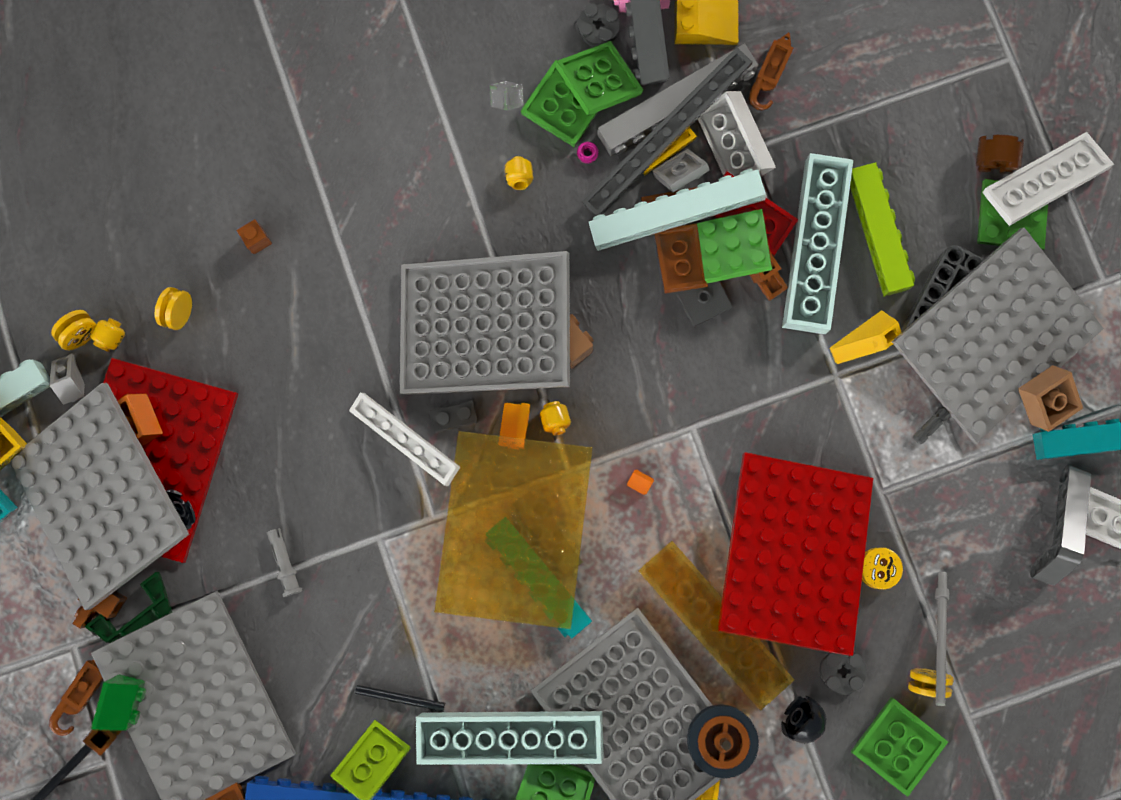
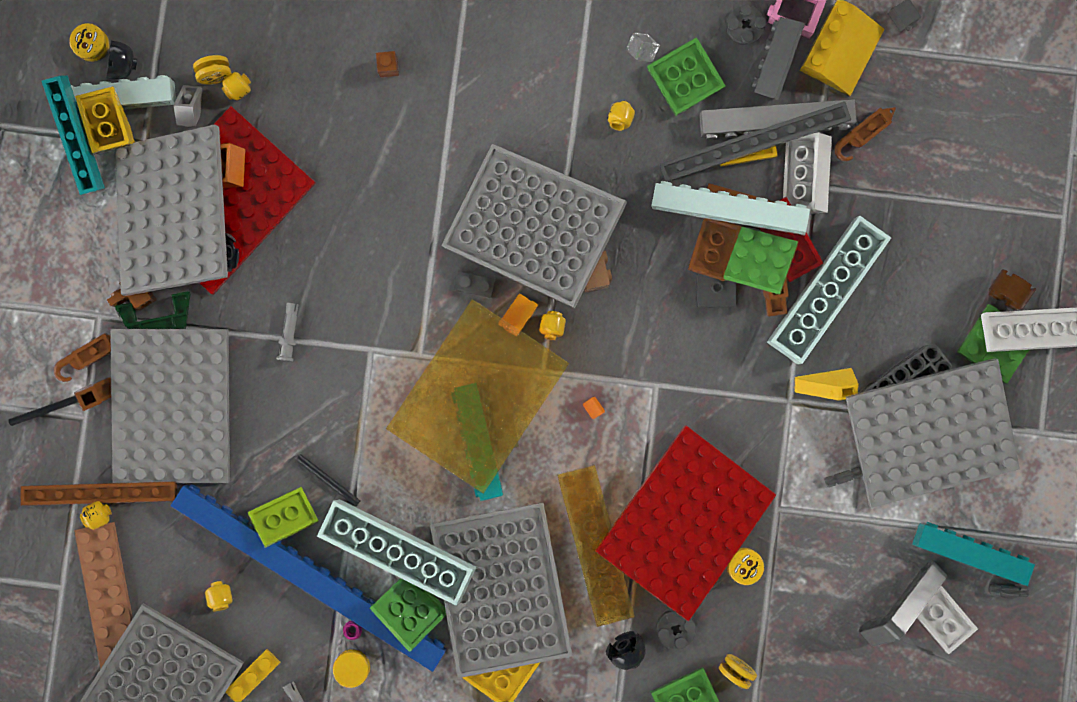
camera: 25 degrees right, 5 degrees up
(119, 703) = (115, 379): green slope -> none
(173, 308) = (297, 91): yellow head -> none
(404, 439) = (427, 284): white plate -> none
(584, 147) = (687, 120): dark pink plate -> none
(599, 78) = (723, 70): bright green plate -> none
(680, 170) = (750, 177): light grey plate -> none
(722, 741) = (556, 635): wheel -> none
(880, 230) = (884, 303): lime brick -> none
(942, 596) = (782, 610): light grey bar -> none
(1050, 398) = (947, 502): medium nougat brick -> none

